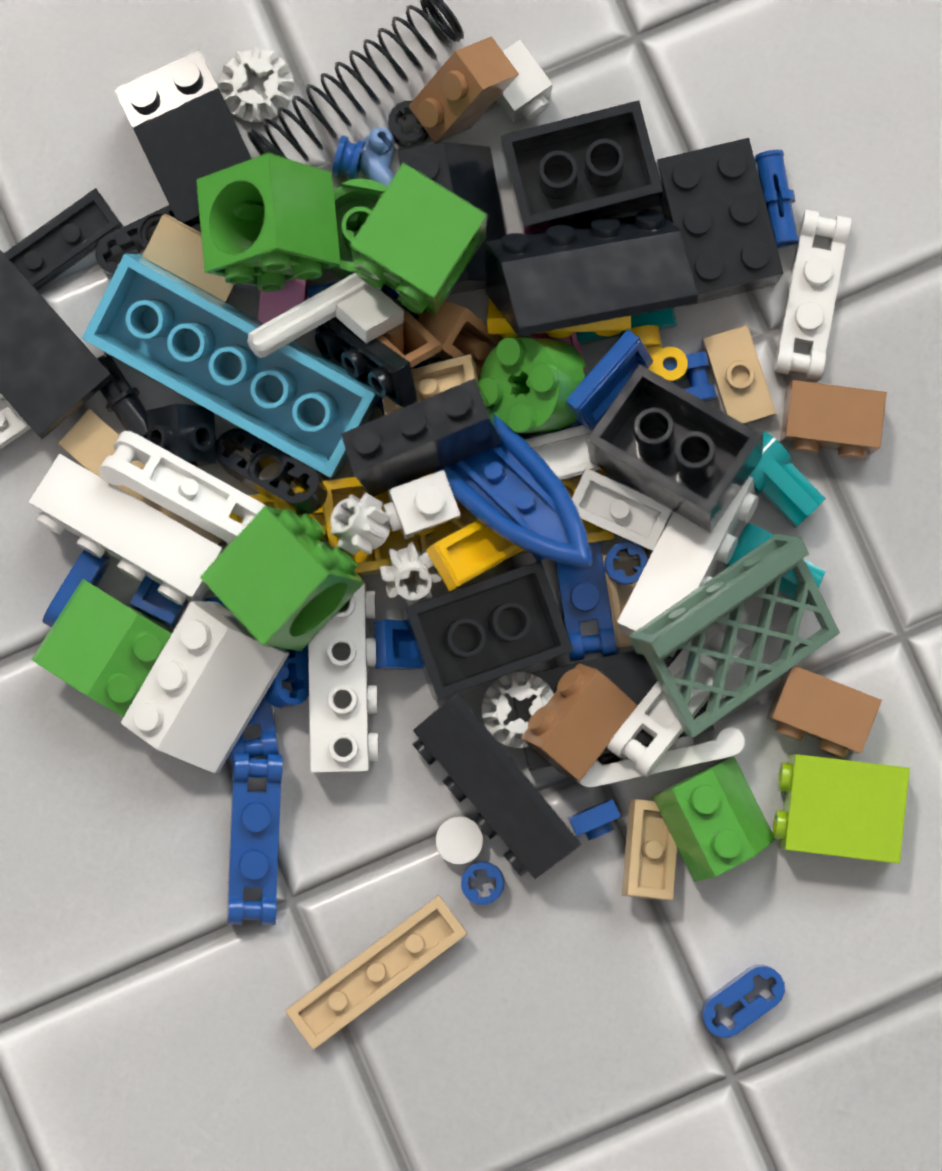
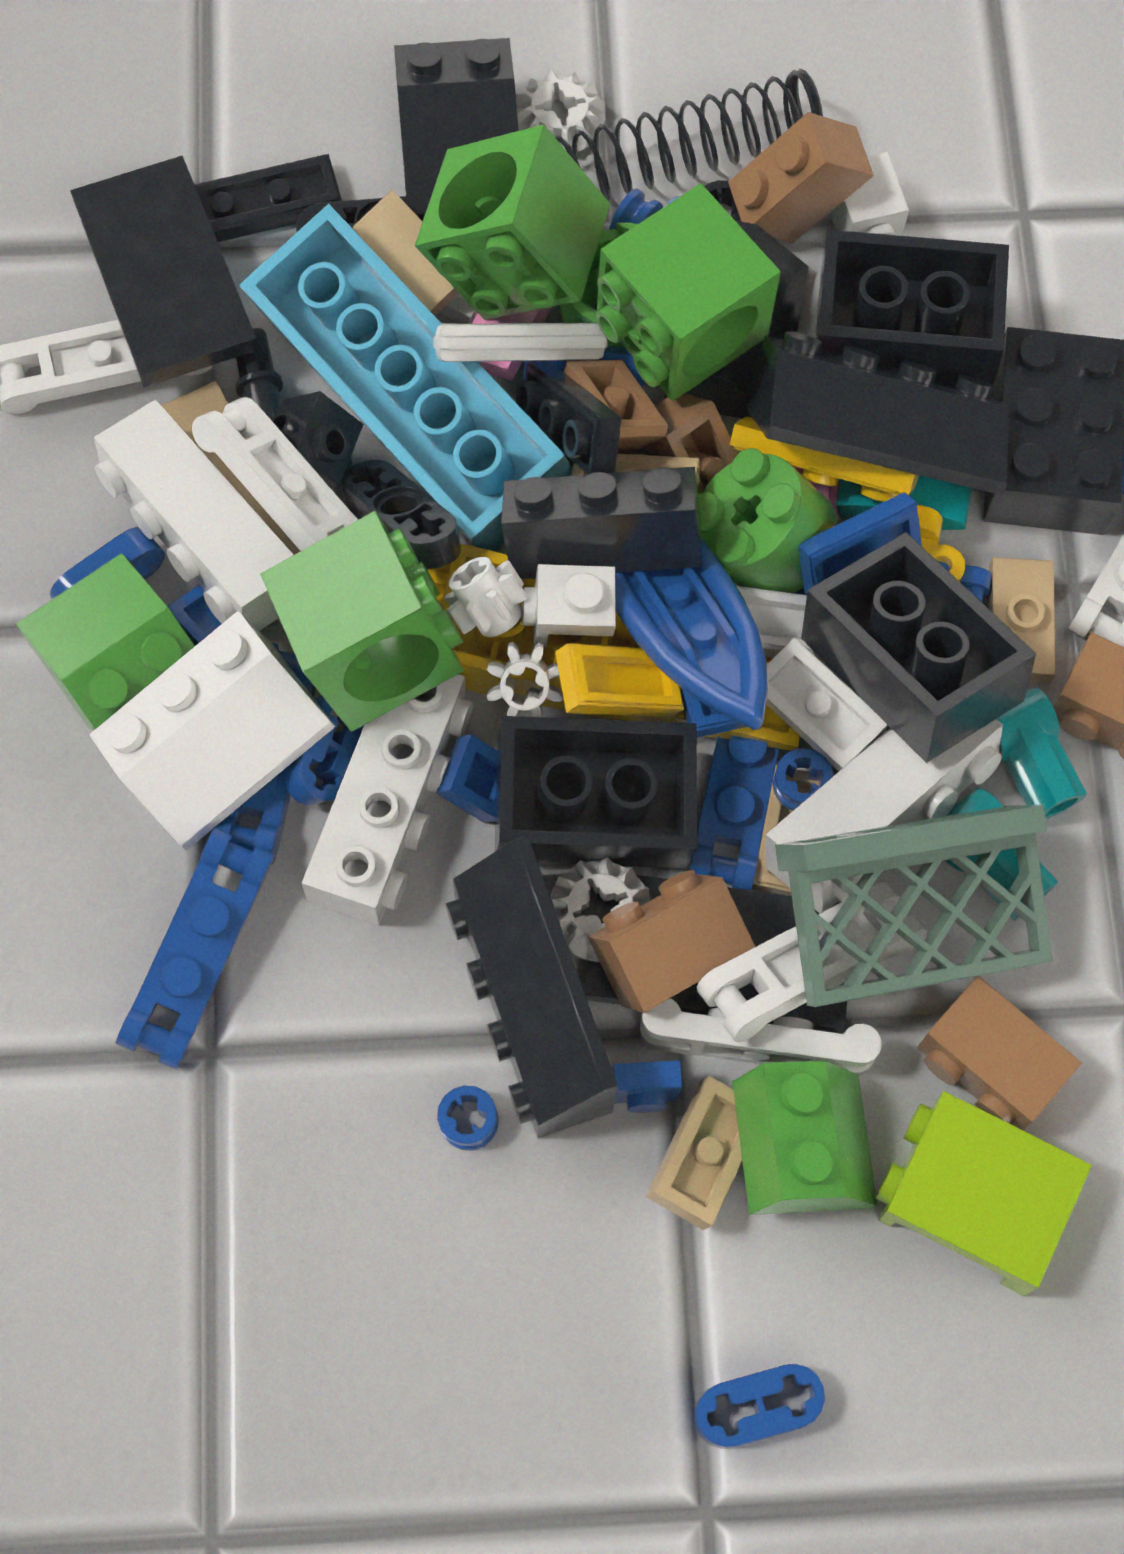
camera: 20 degrees right, 15 degrees down
(369, 313) = (594, 366): white tile -> none
(376, 972) = (281, 1178): tan plate -> none
(459, 840) = (458, 1051): white tile -> none

